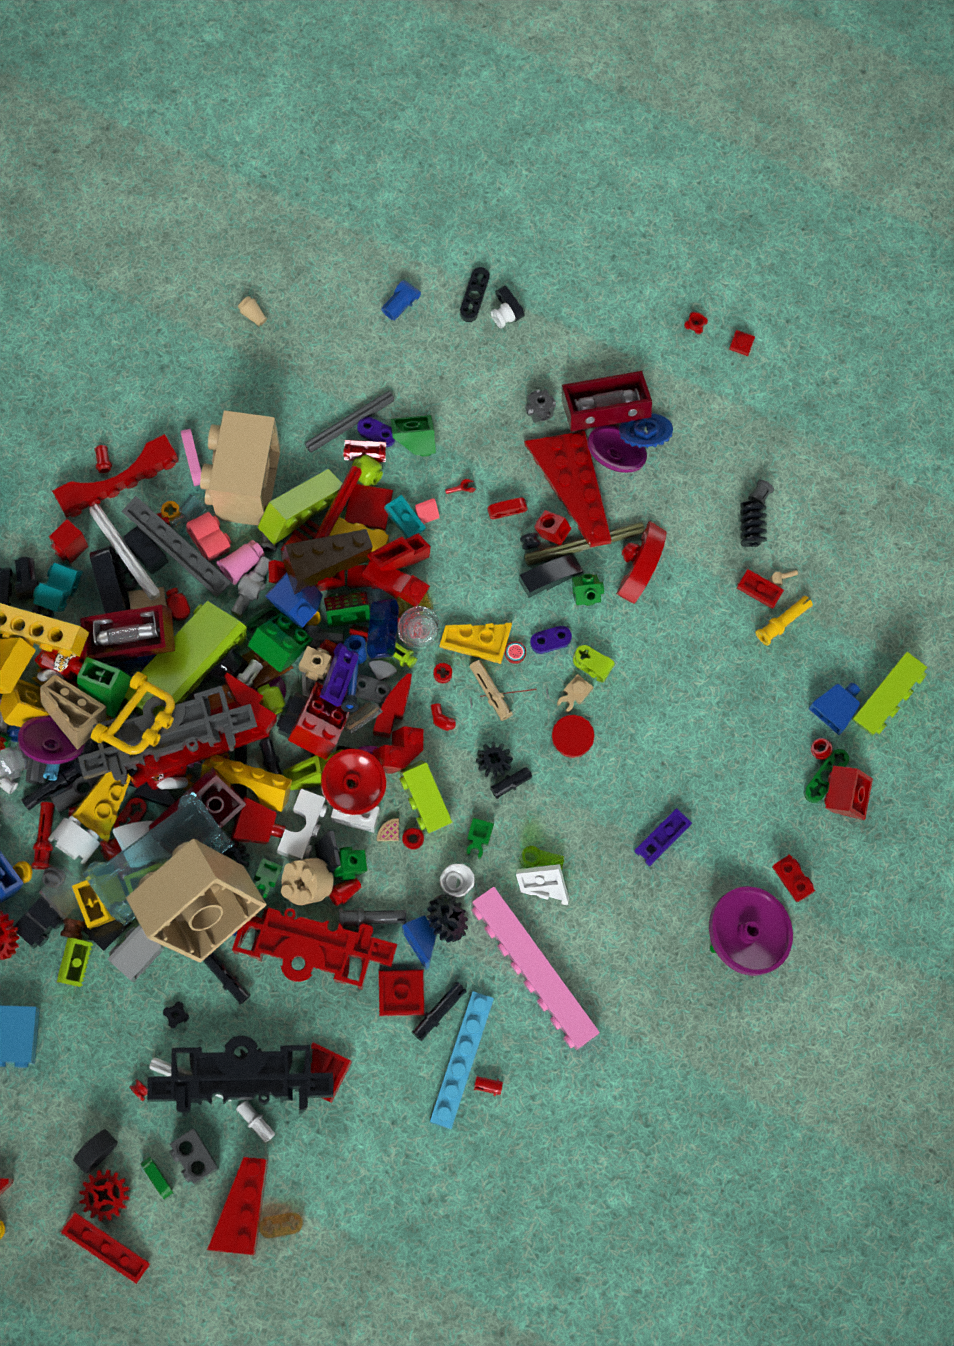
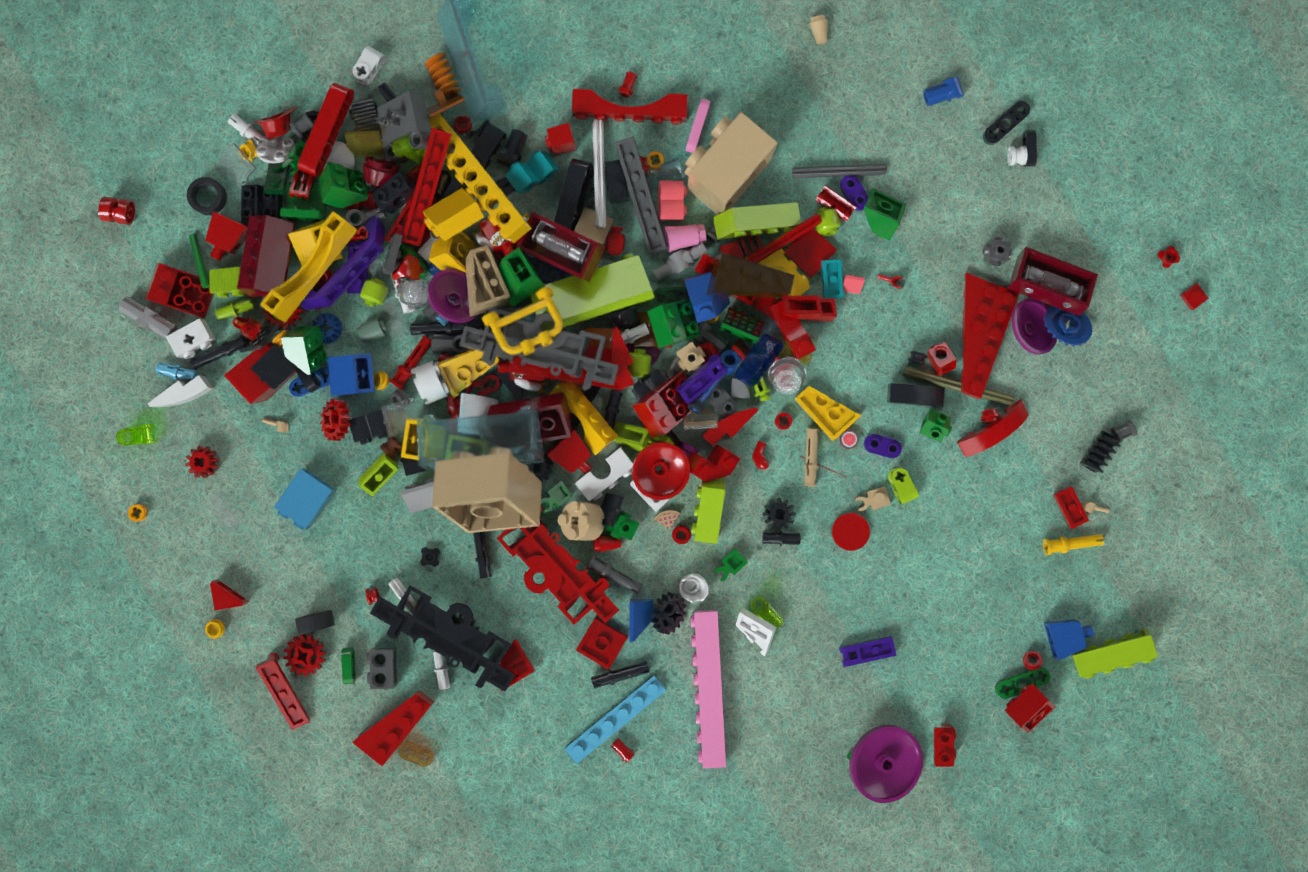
camera: 35 degrees right, 15 degrees up
(507, 508) = (916, 320): red beam -> none

